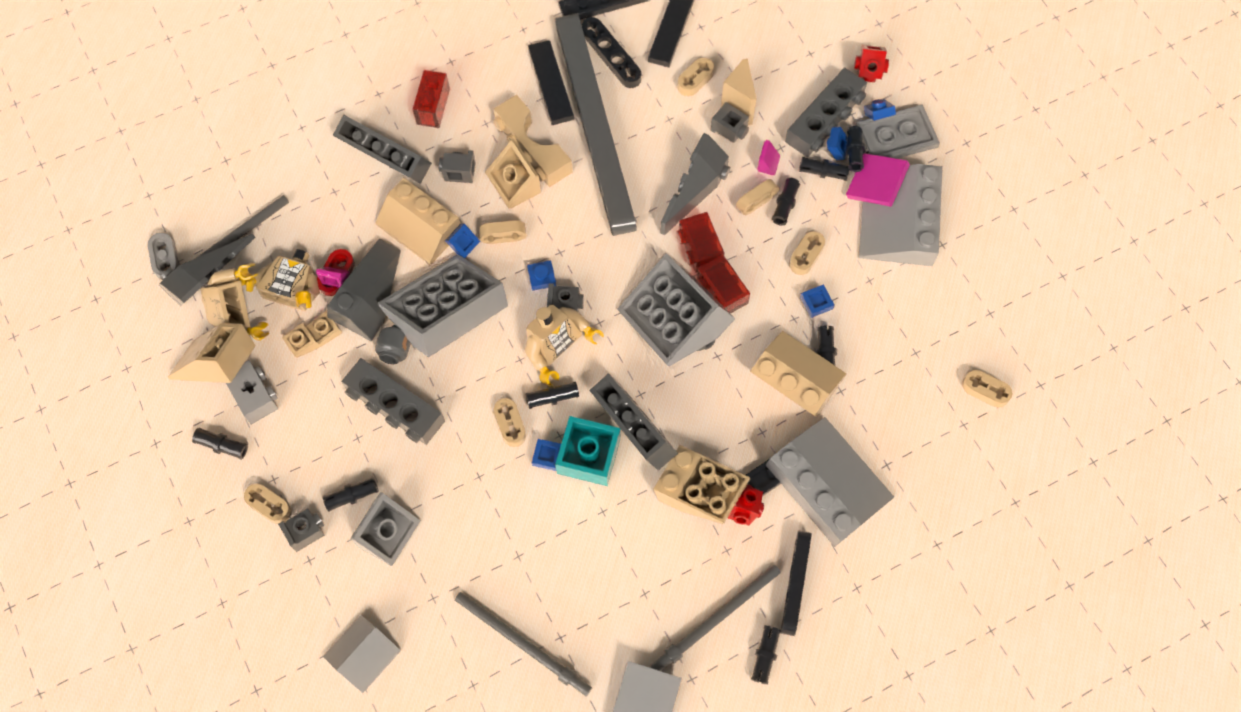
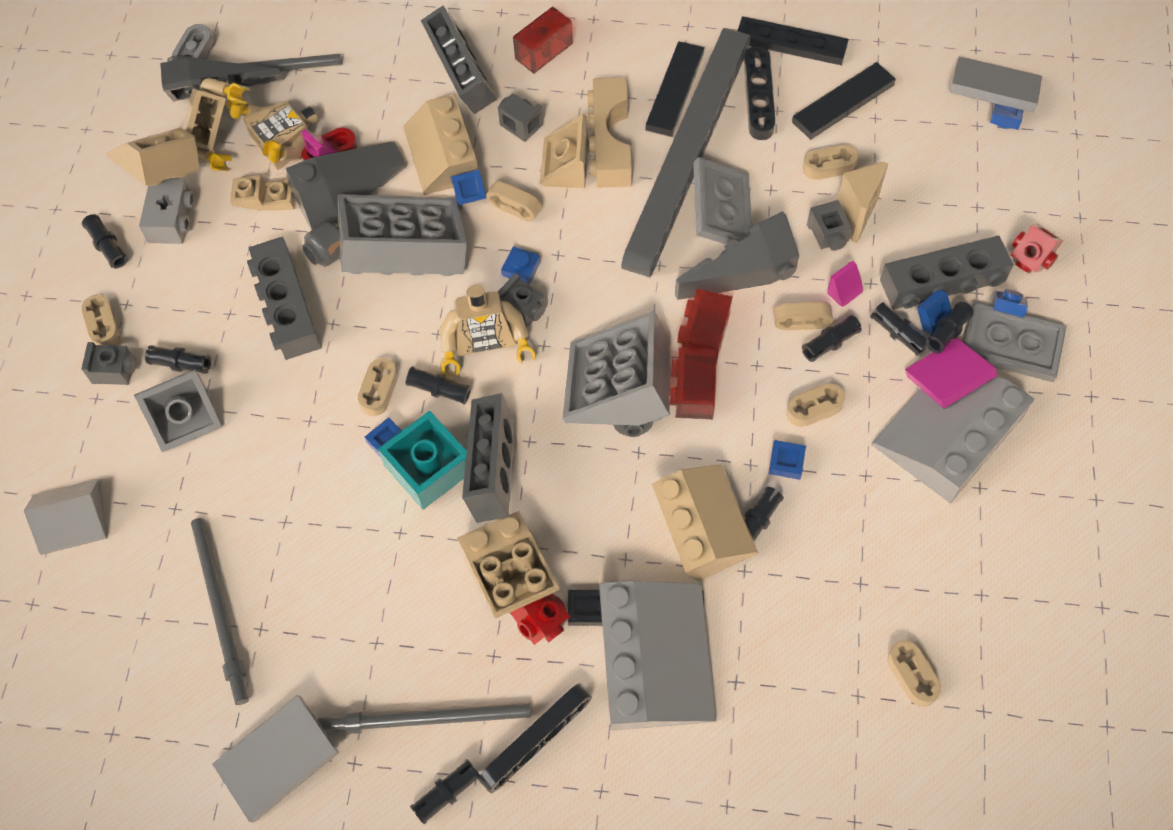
camera: 35 degrees right, 5 degrees down
(649, 149) = (721, 202): none -> light grey tile

